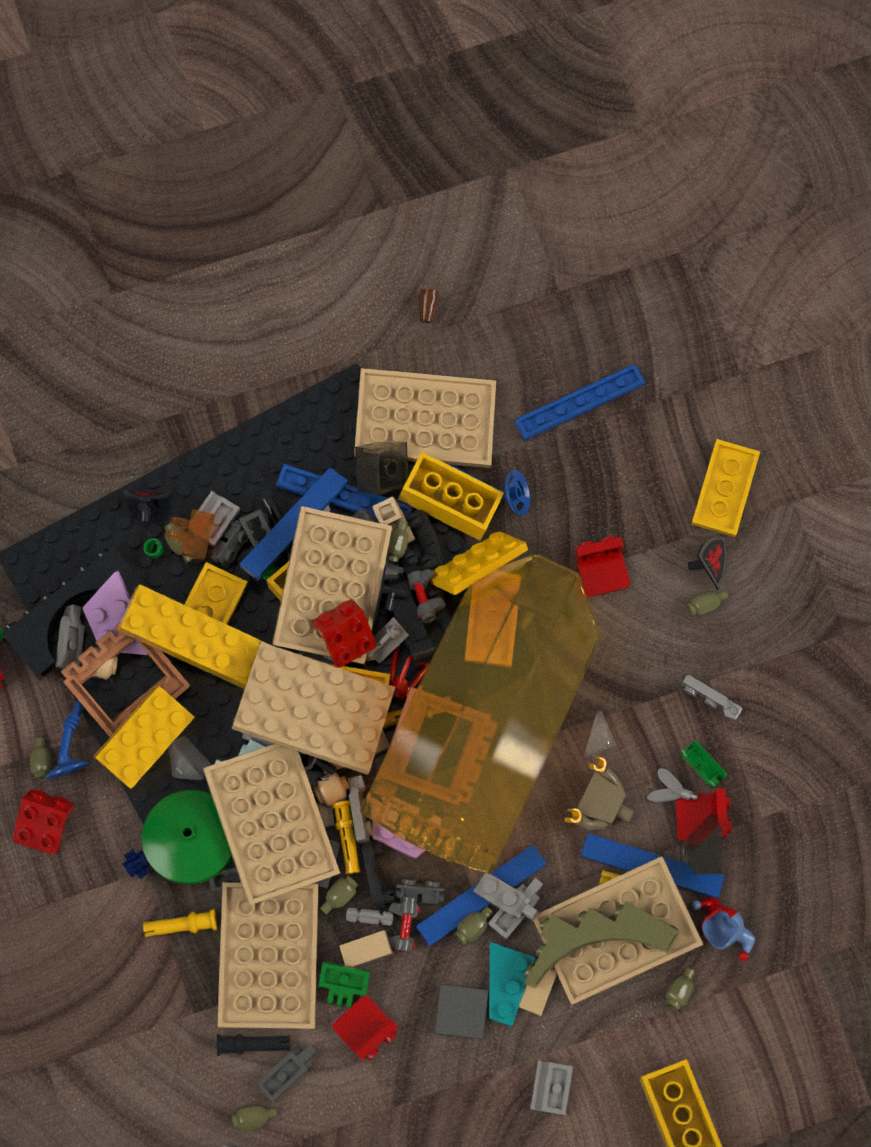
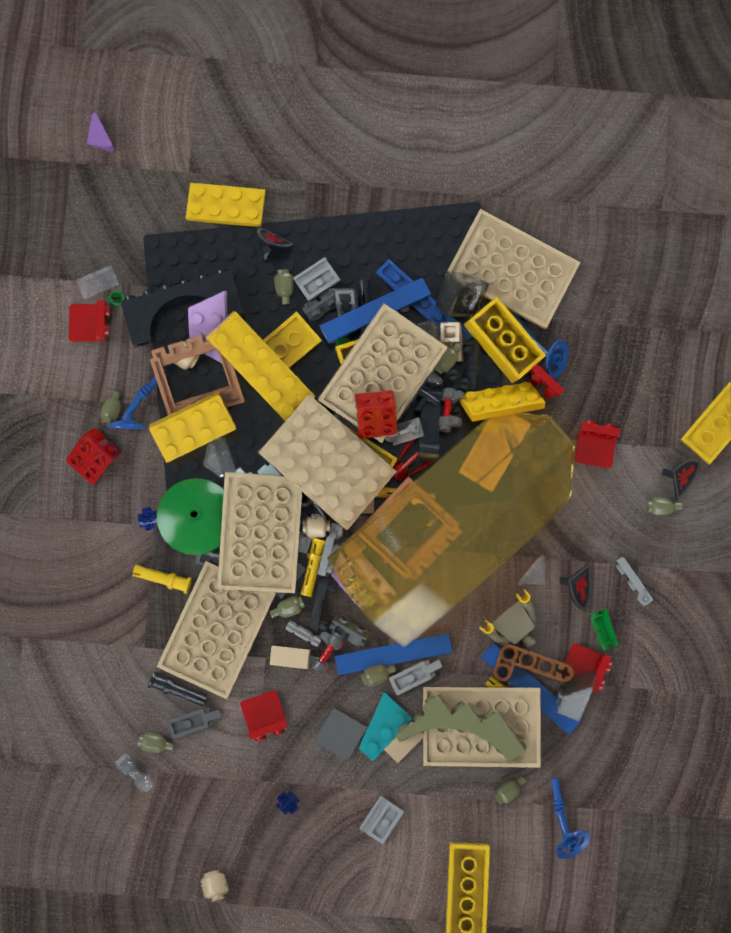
camera: 25 degrees right, 10 degrees up
(70, 637) = (170, 326): light grey hinge -> none
(75, 482) = (225, 204): none -> yellow plate
(150, 547) = (259, 282): green hinge -> none
(197, 535) = (299, 287): clear orange hinge -> none
(343, 982) = (263, 674): green hinge -> none
(428, 305) = (554, 179): reddish brown cone -> none
(436, 1116) = (287, 803): none -> clear blue gear
(505, 897) = (409, 665): light grey hinge -> none
(526, 524) = (552, 387): none -> red plate
(579, 402) = (637, 306): blue tile -> none
(646, 838) = (537, 659): none -> dark orange beam
(655, 729) = (579, 586): none -> shield
(674, 791) = (572, 639): light grey piece -> none
(724, 926) = (563, 758): medium blue piece -> none
(772, 1014) = (569, 839): none -> blue dish

